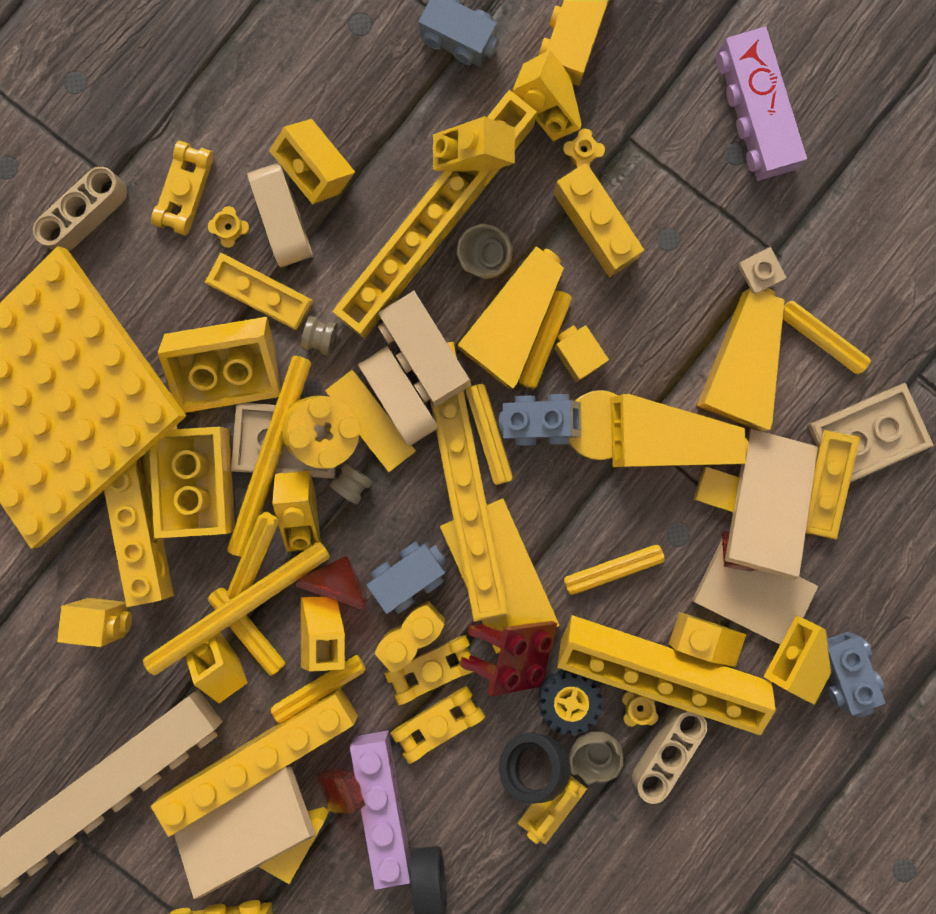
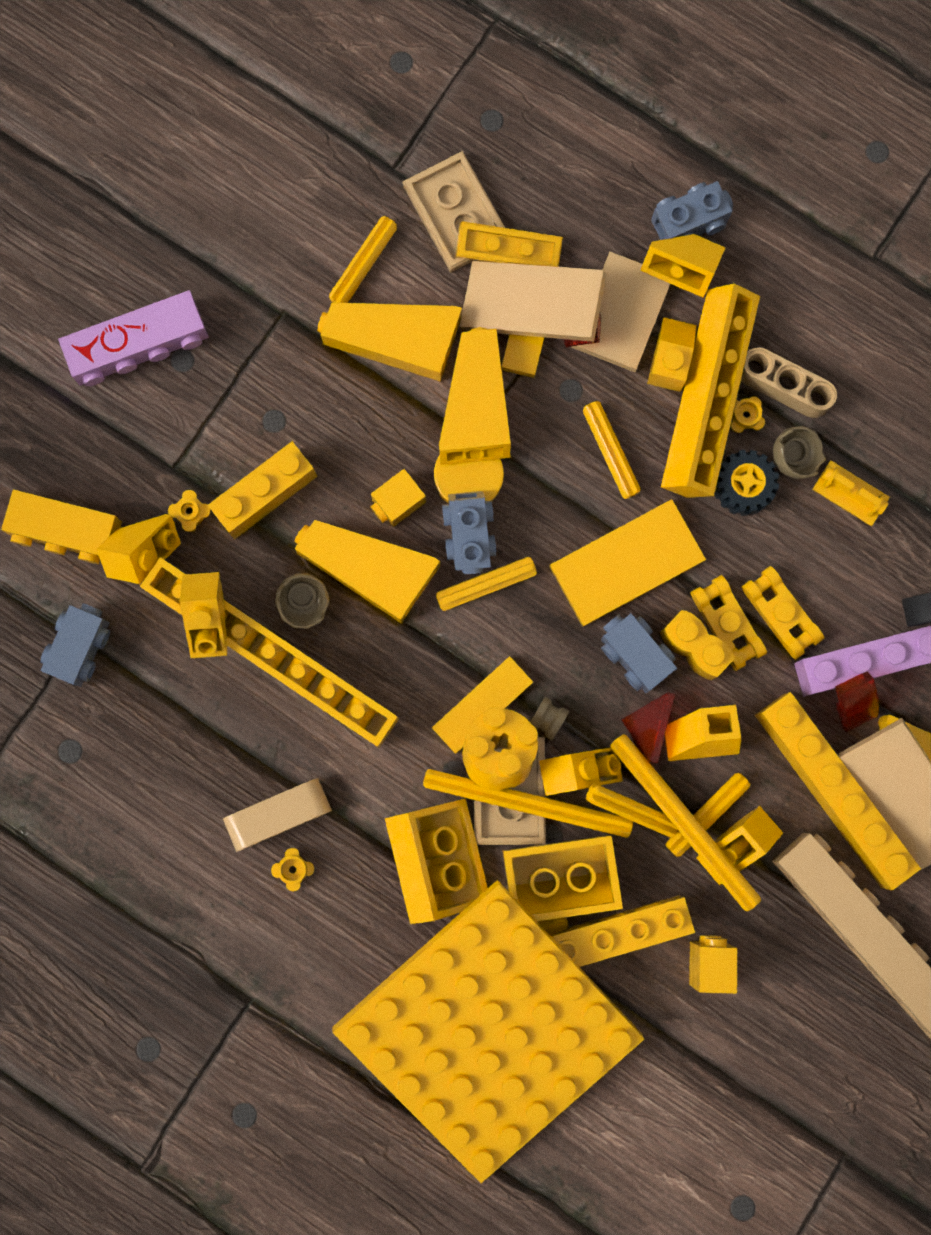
camera: 100 degrees left, 5 degrees down
(63, 211) = (291, 1043): tan beam -> none
(183, 188) = (255, 921): yellow plate -> none
(259, 291) = (357, 832): yellow tile -> none
(311, 161) = (221, 784): yellow brick -> none
(317, 689) = (761, 737): yellow axle -> none
(319, 336) = (400, 763): dark tan wheel -> none
(398, 396) = (455, 676): tan beam -> none
(423, 350) = (408, 654): tan brick -> none
(469, 508) = (535, 604): yellow tile -> none
(509, 768) = (821, 537): black tyre -> none
(521, 656) = (707, 531): dark red plate -> none
(545, 339) = (386, 533): yellow axle -> none
(762, 271) = (304, 326): tan bracket -> none

